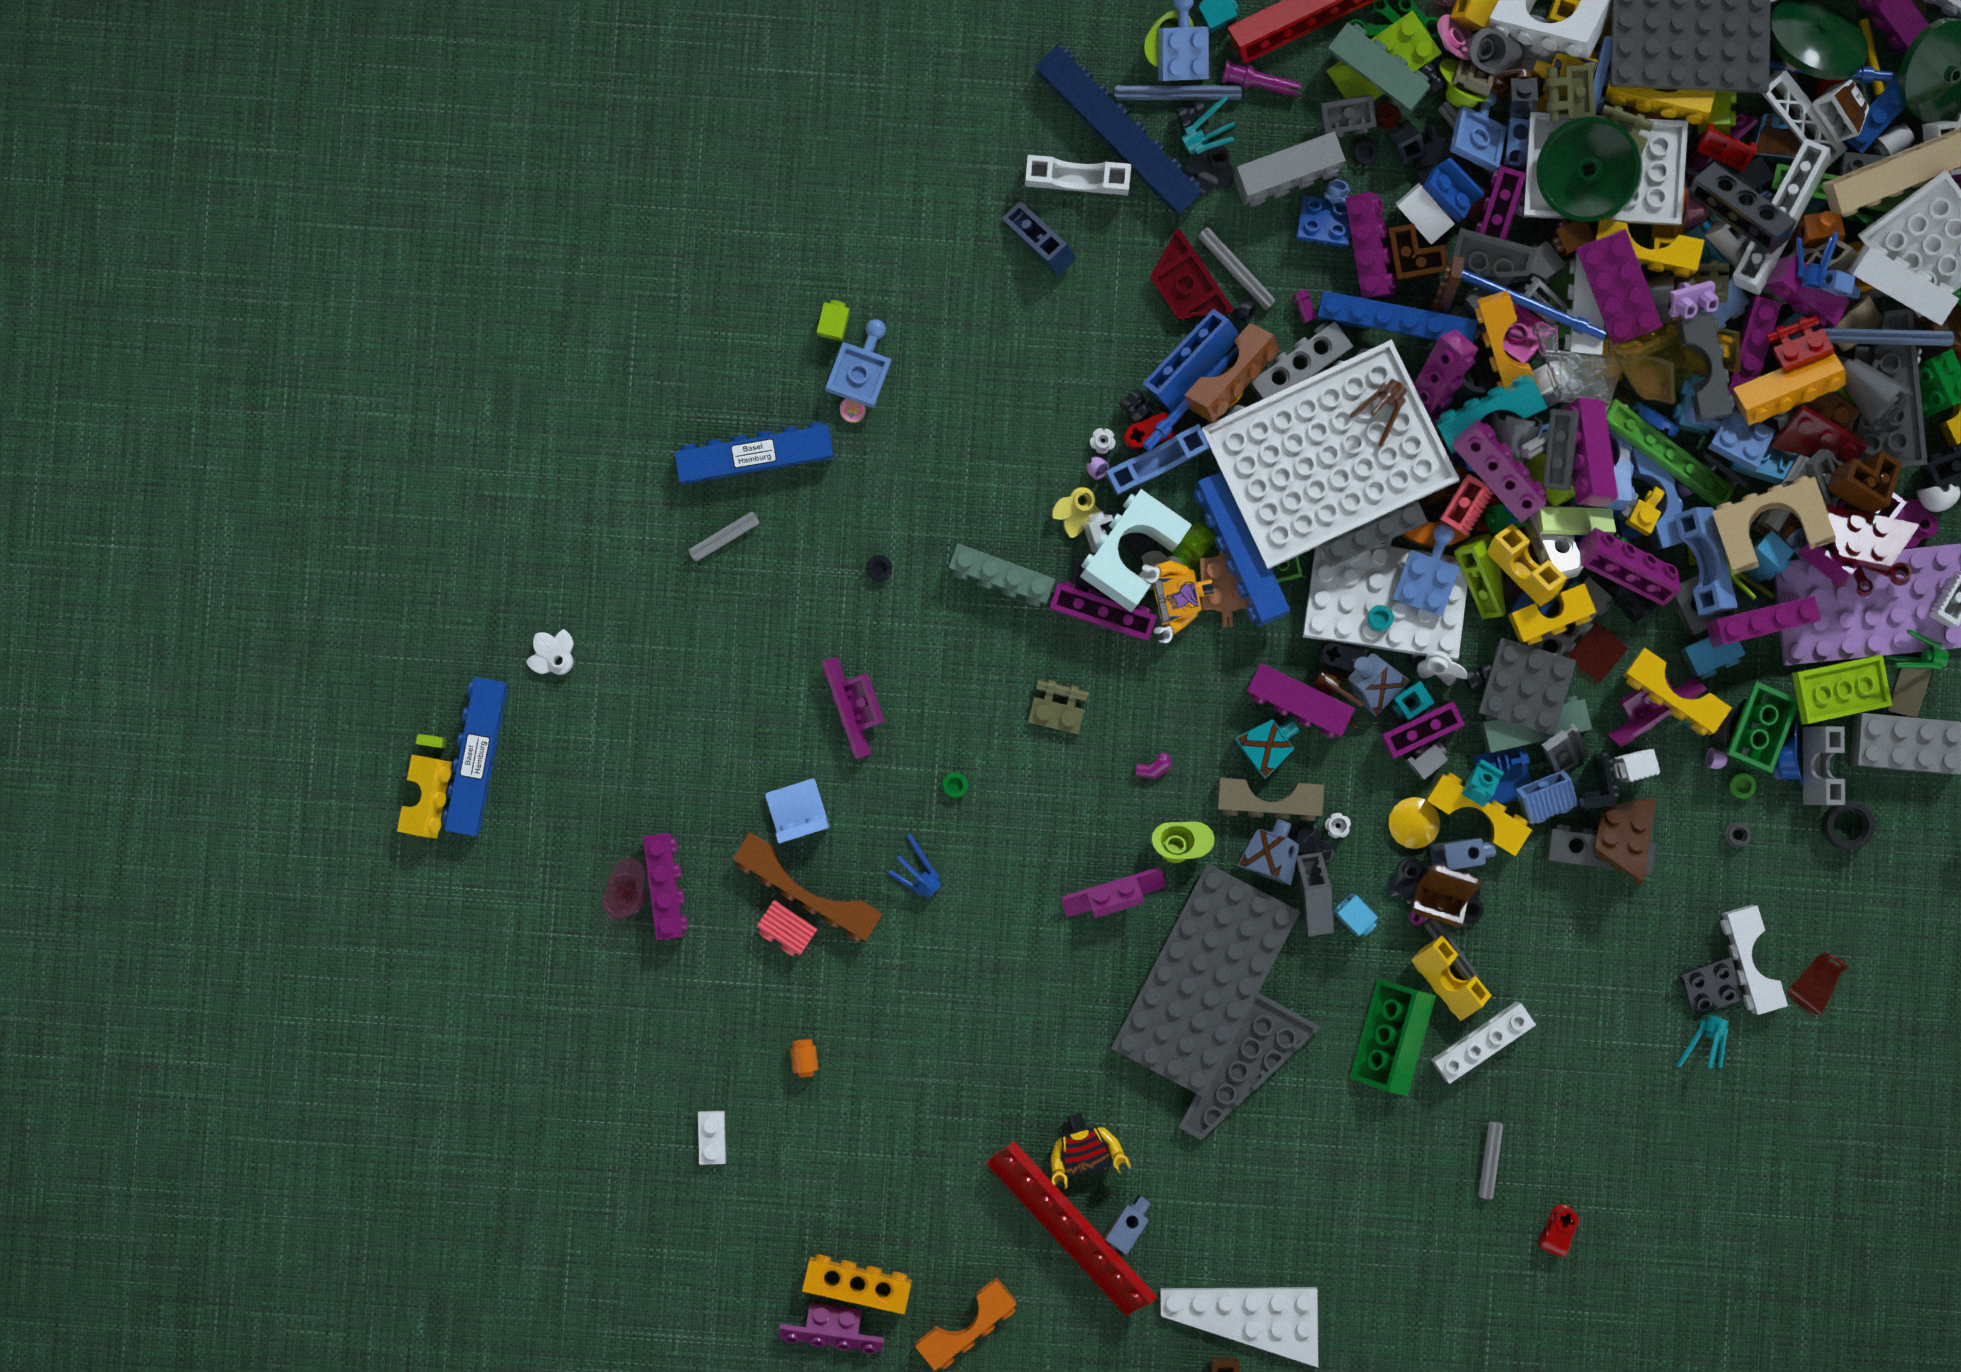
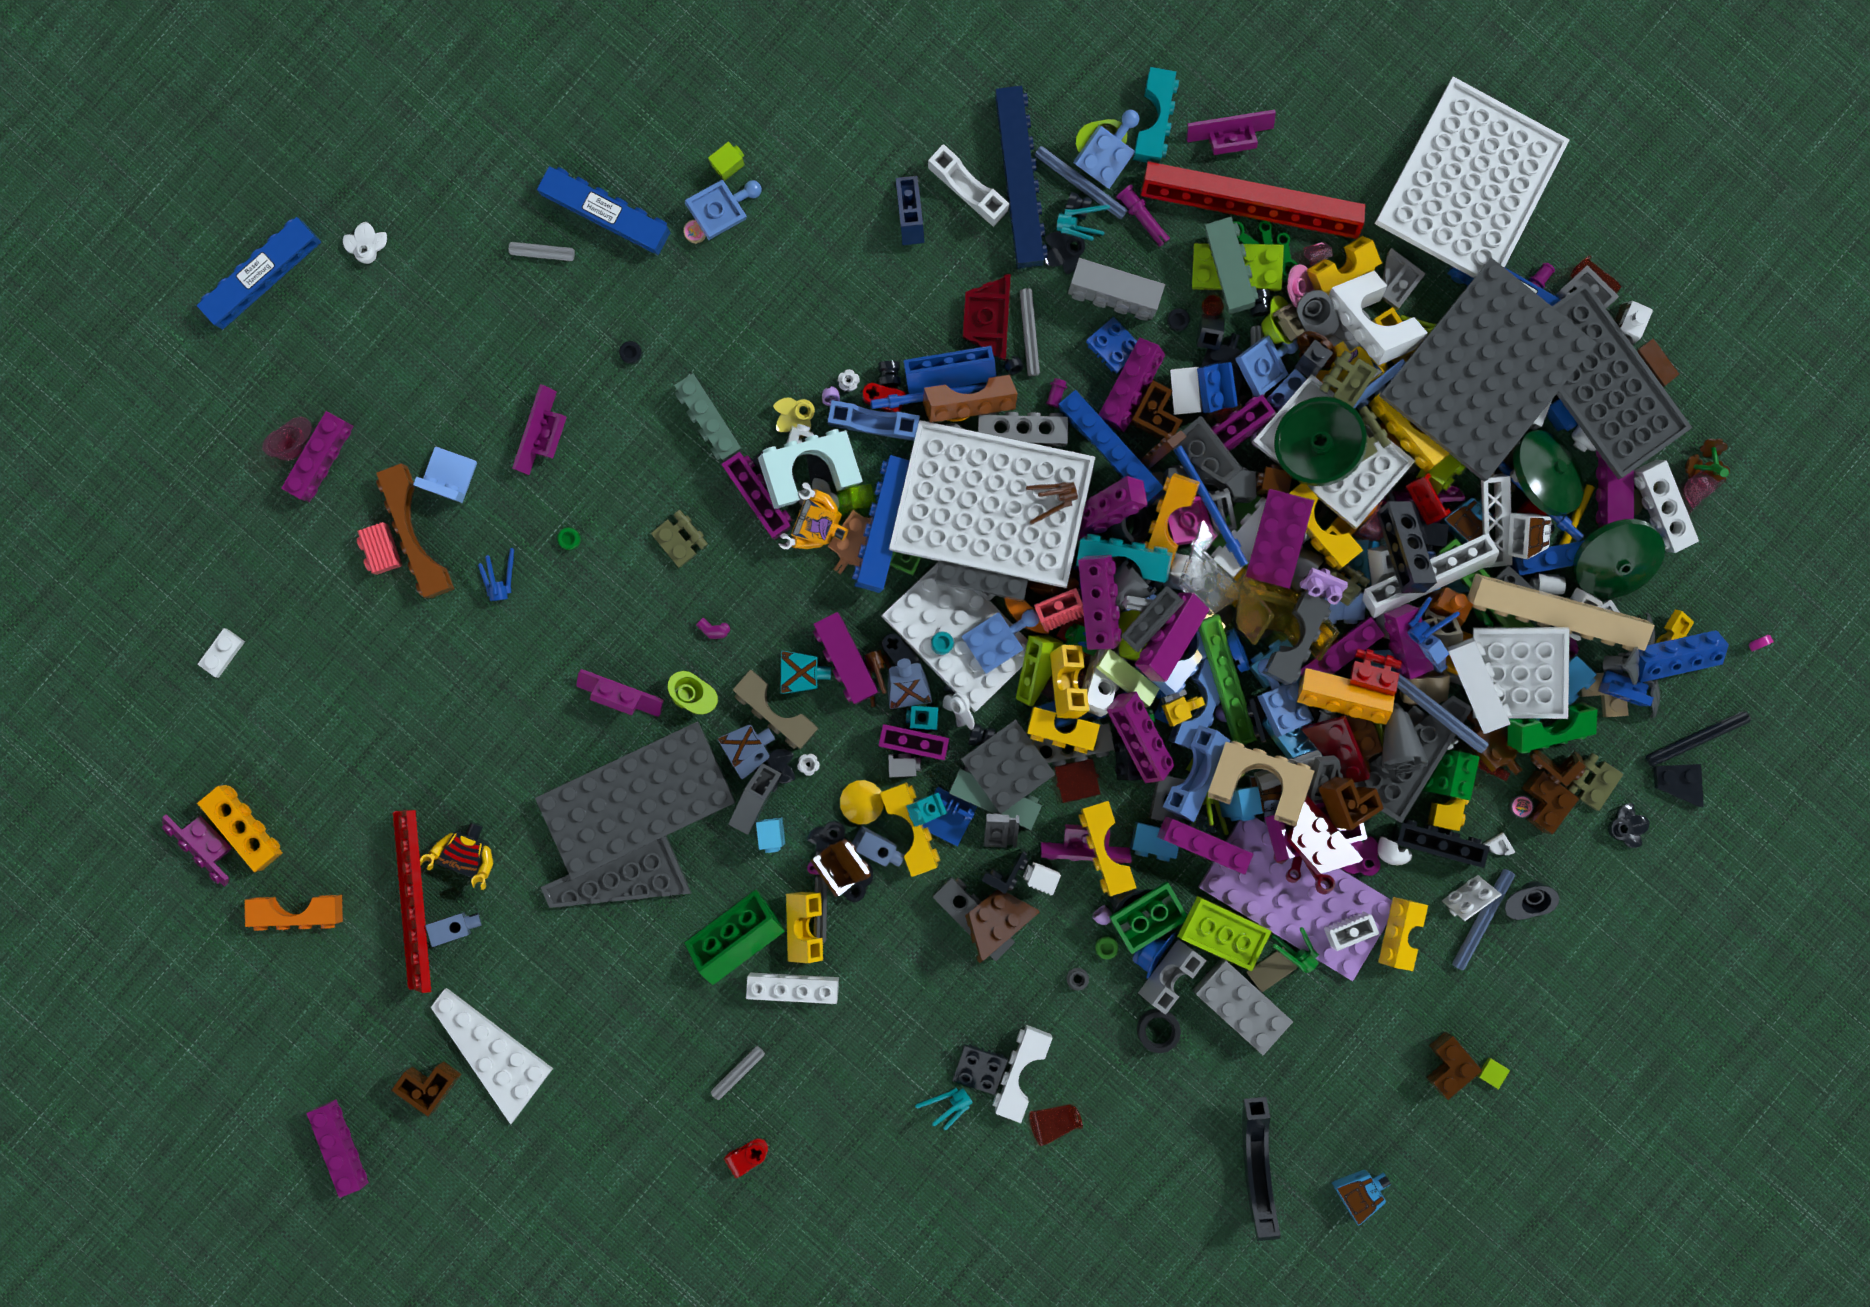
camera: 35 degrees right, 0 degrees up
(433, 741) = (236, 239): lime tile -> none
(433, 778) = (215, 266): yellow arch -> none
(804, 1058) = (323, 645): orange brick -> none
(1336, 191) = (1137, 330): medium blue plate -> none
(1348, 115) = (1185, 284): dark grey bracket -> none
(1547, 797) = (965, 853): medium blue brick -> none

